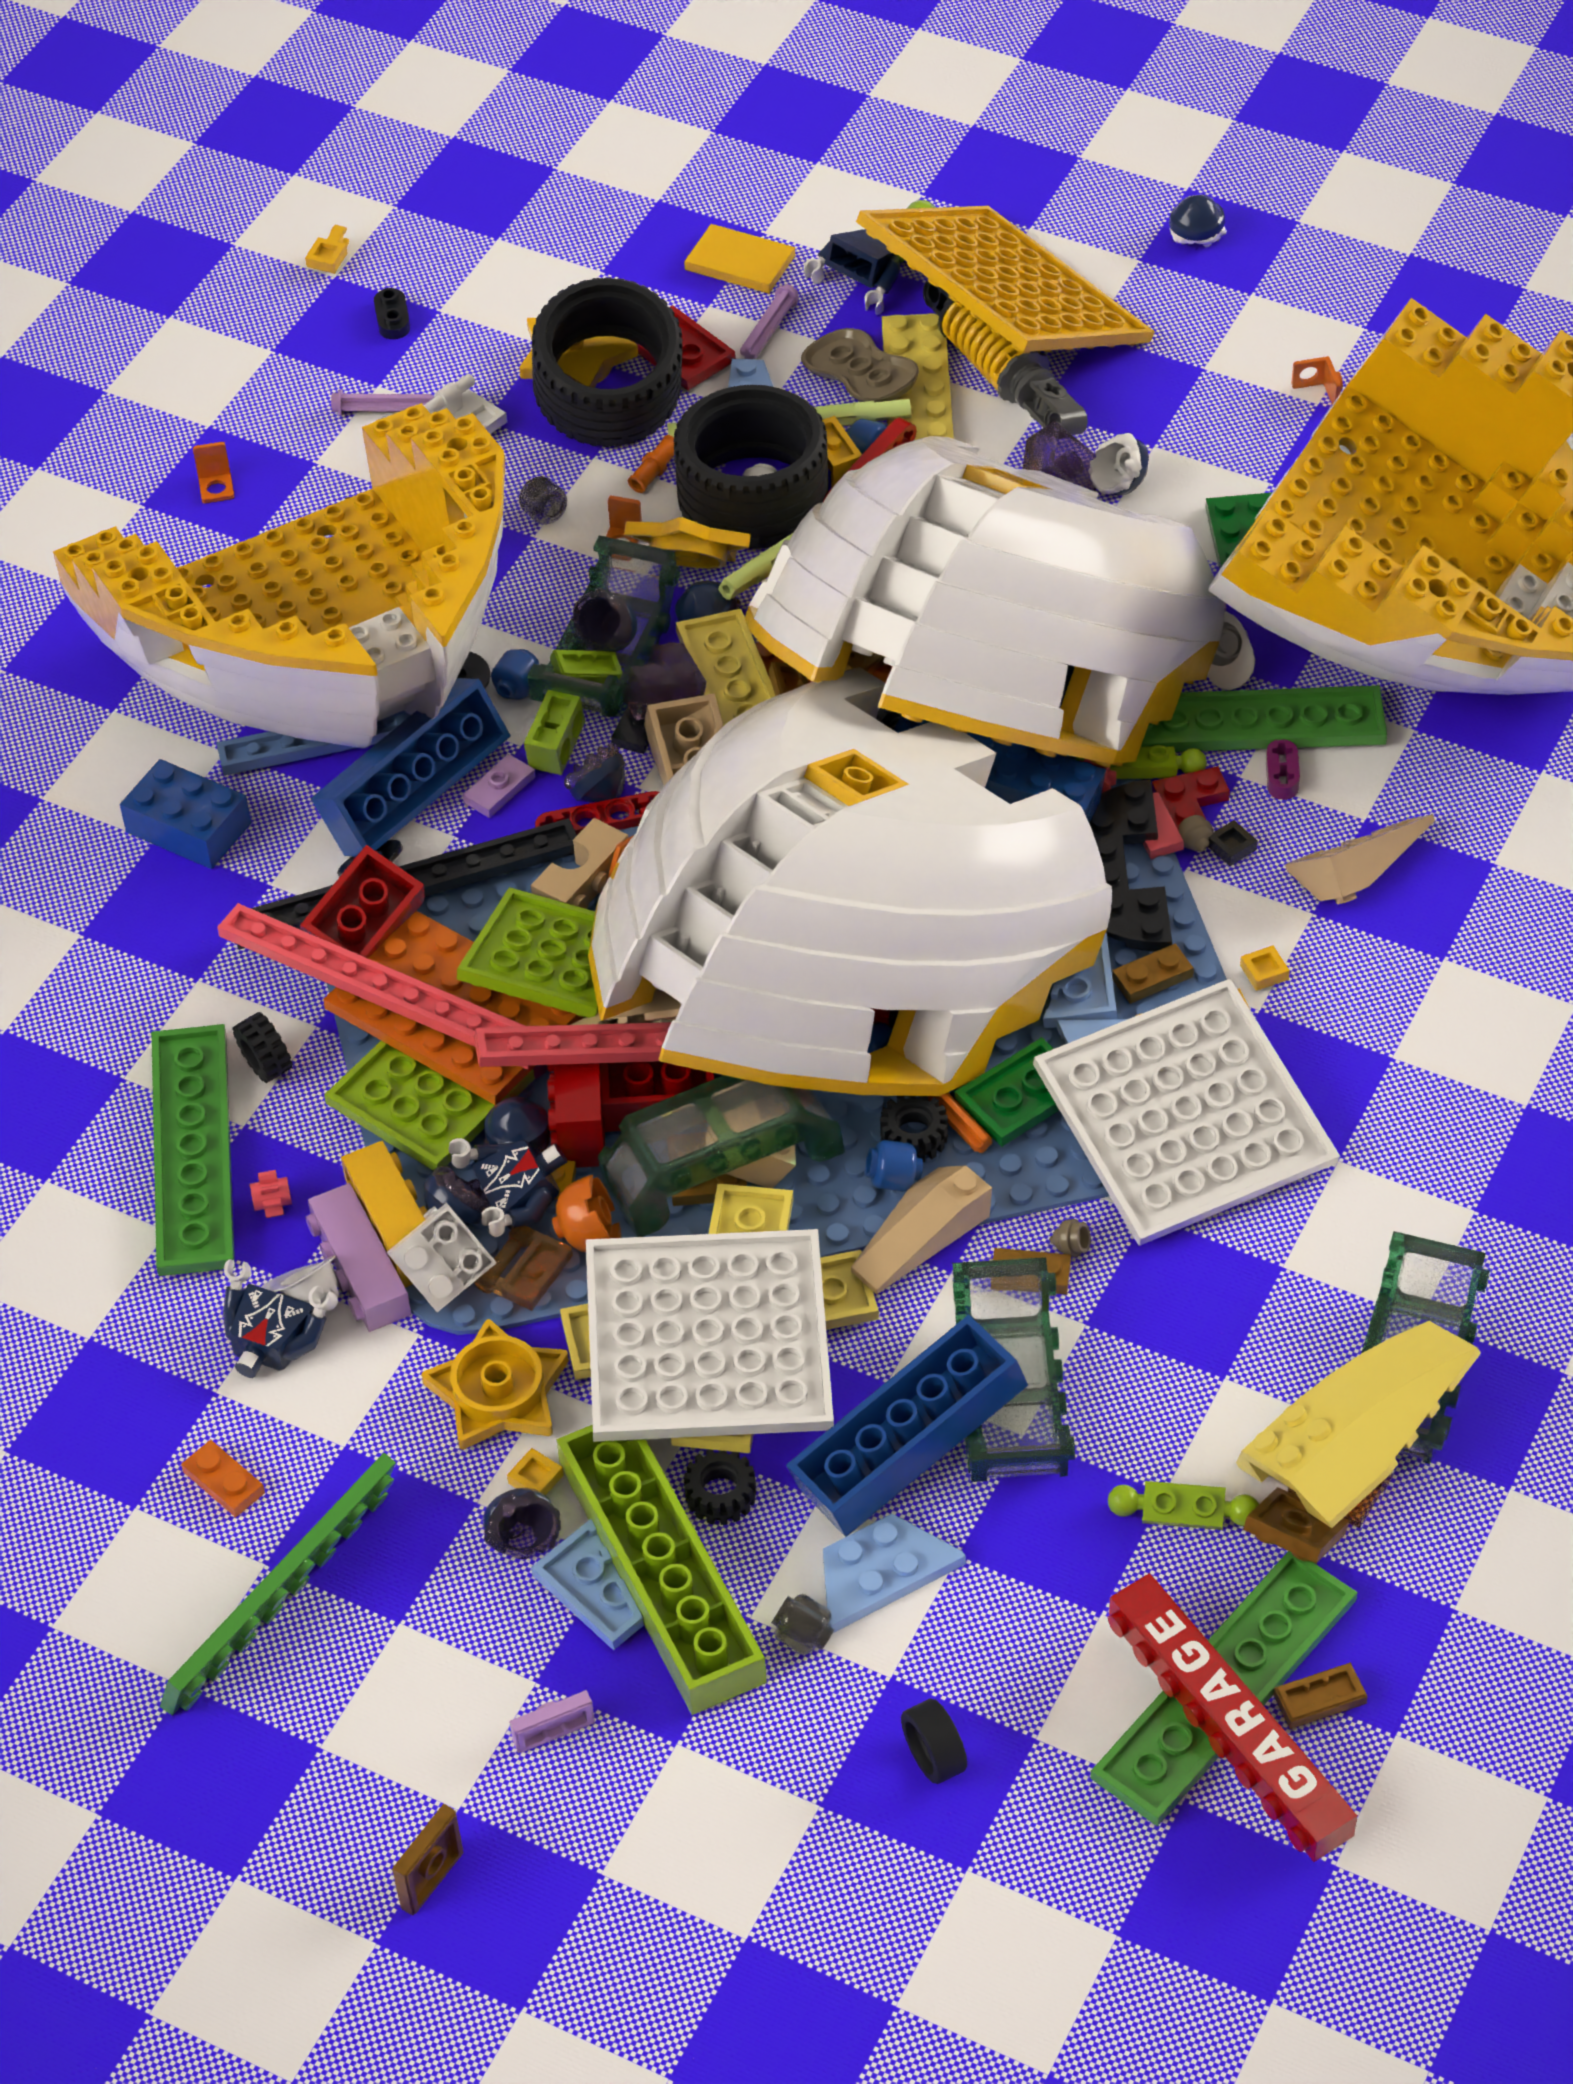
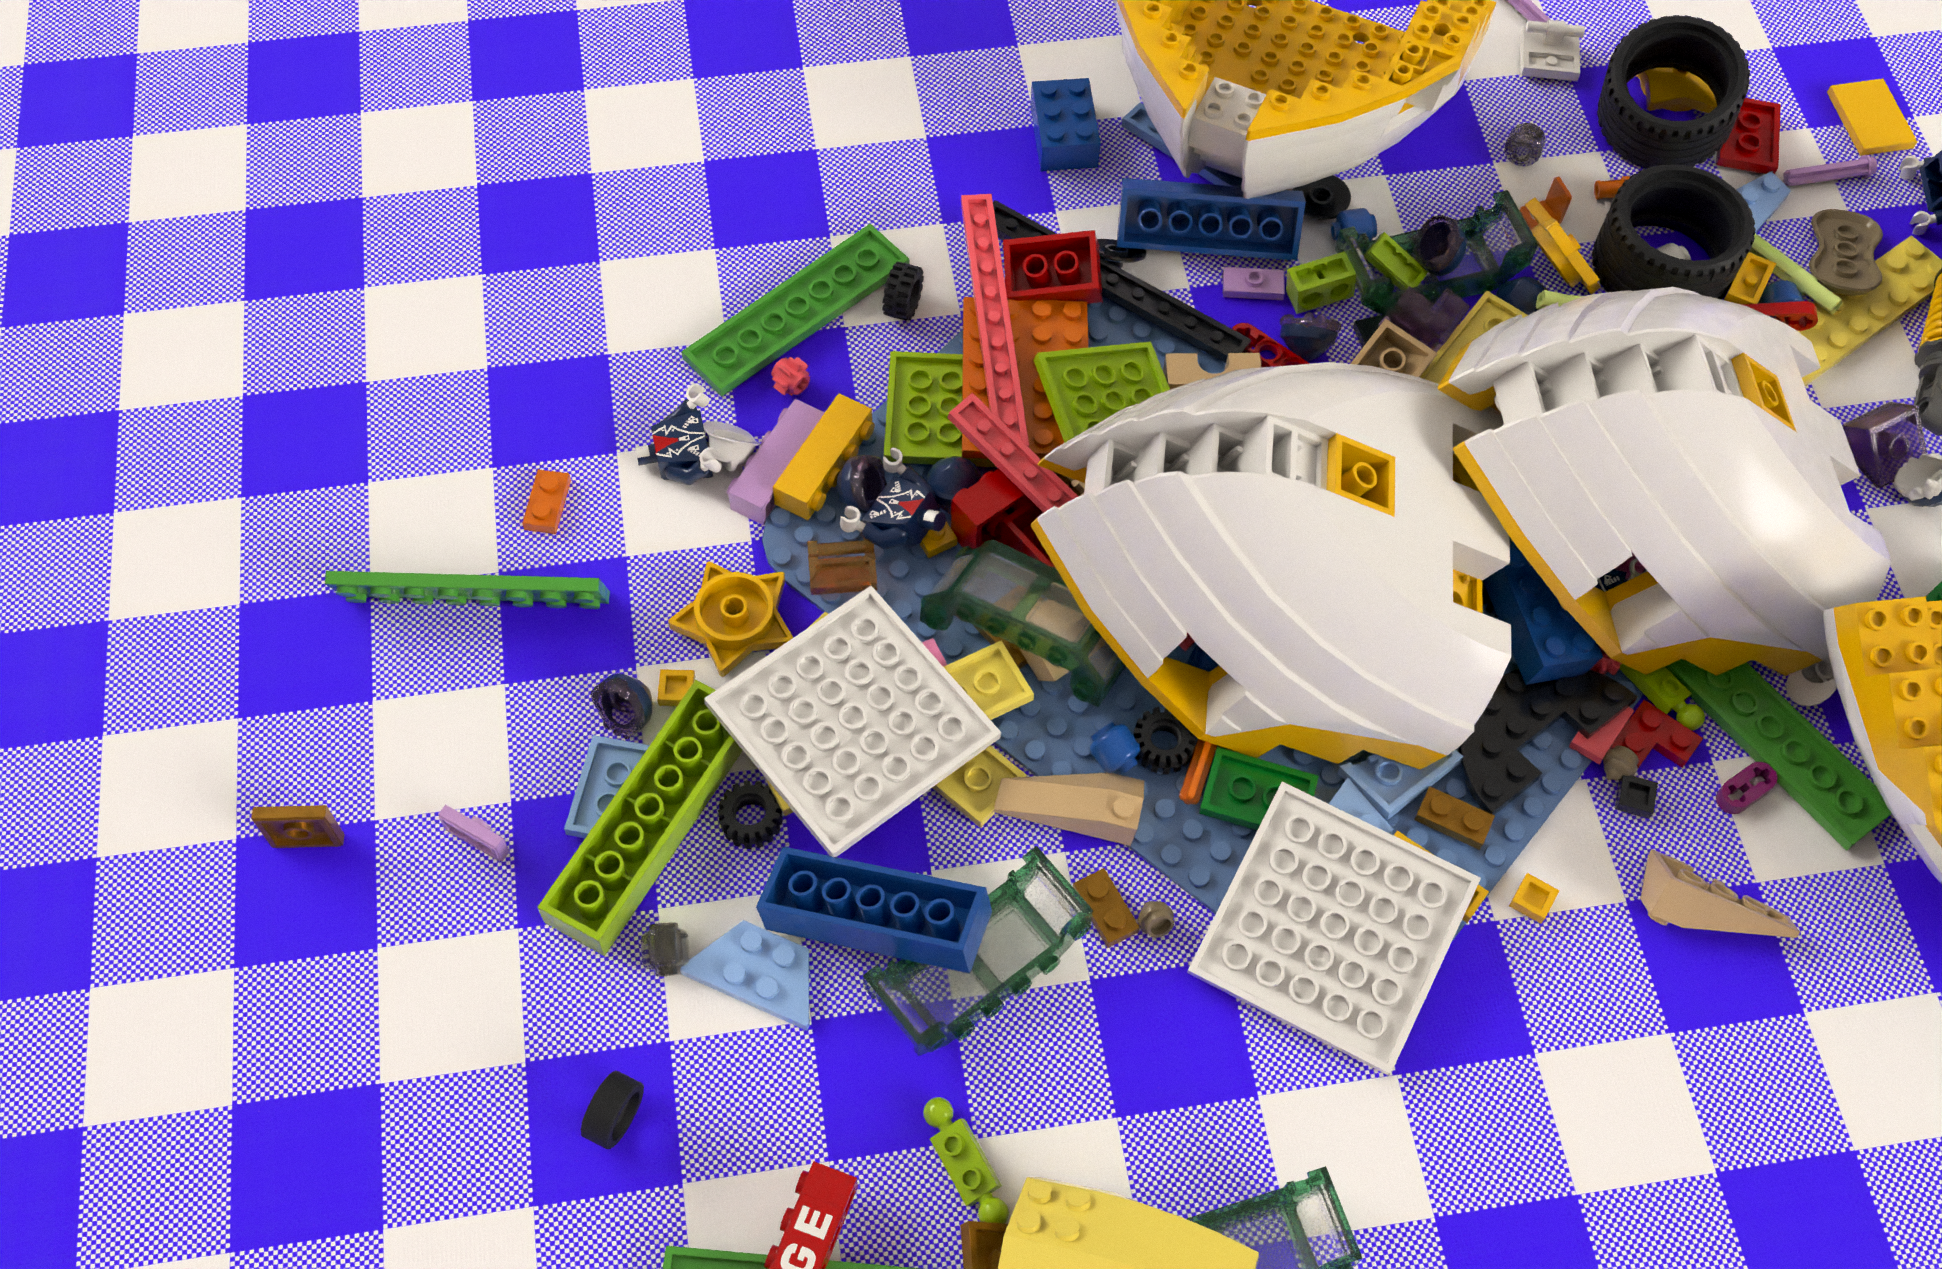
camera: 50 degrees right, 10 degrees up
(441, 1256) = (798, 507): white plate -> none
(585, 1213) = (909, 575): orange cylinder -> none

